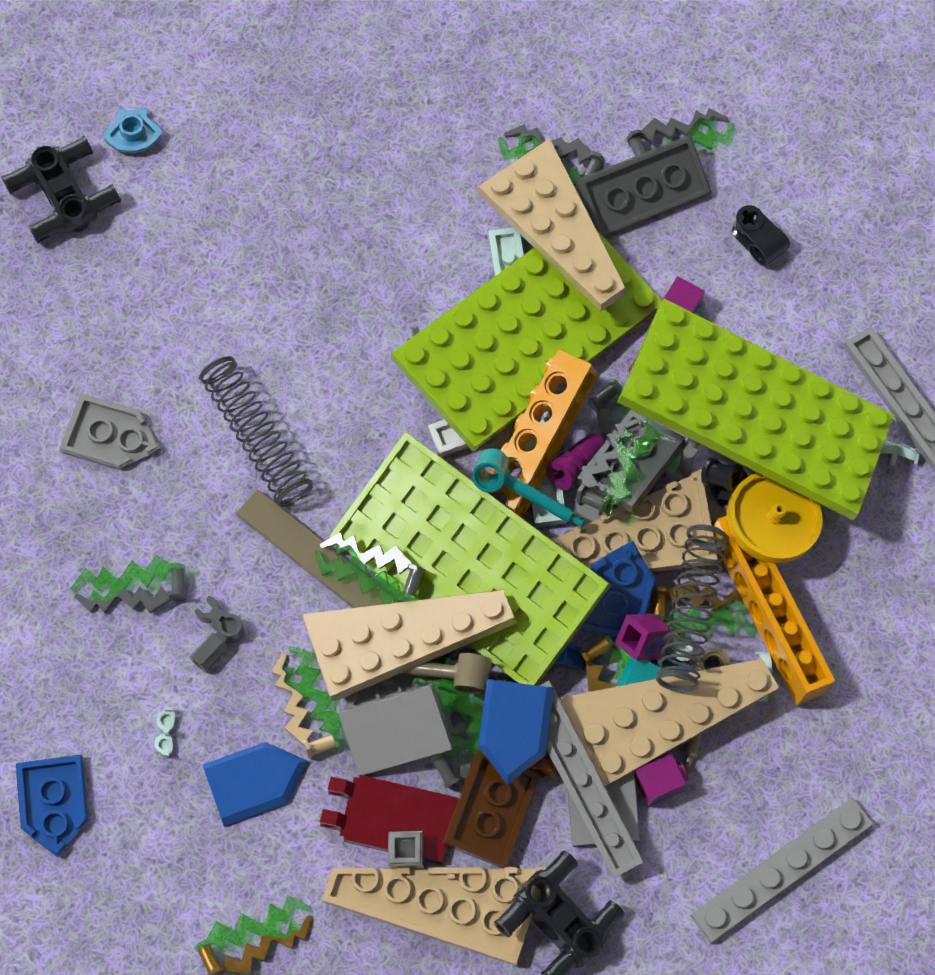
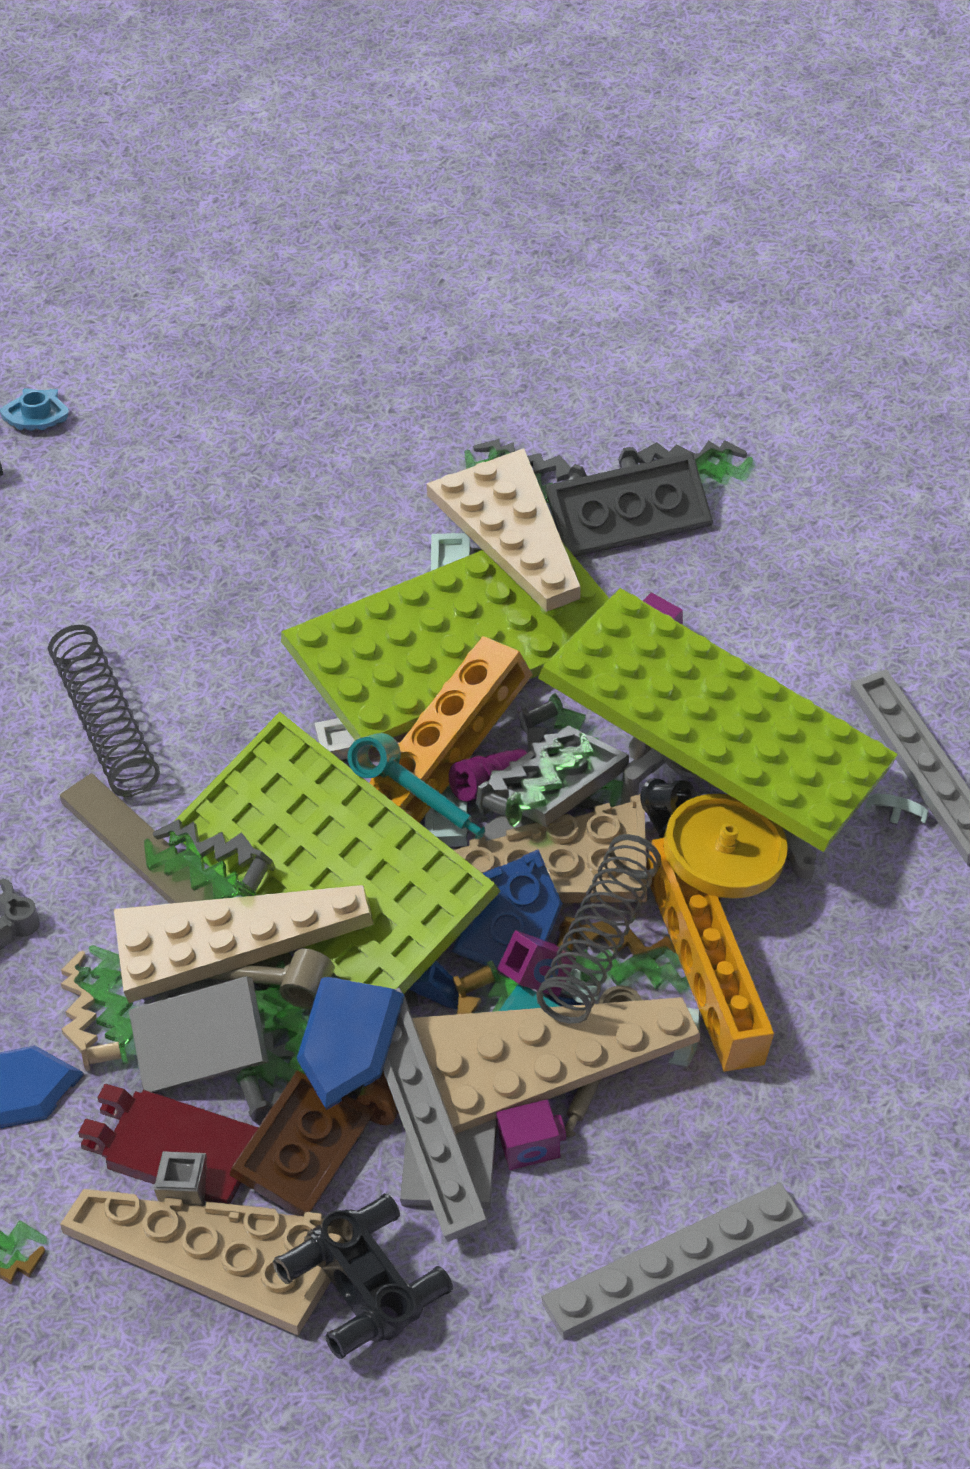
camera: 10 degrees right, 20 degrees down
(759, 235) = (763, 565): black piece -> none

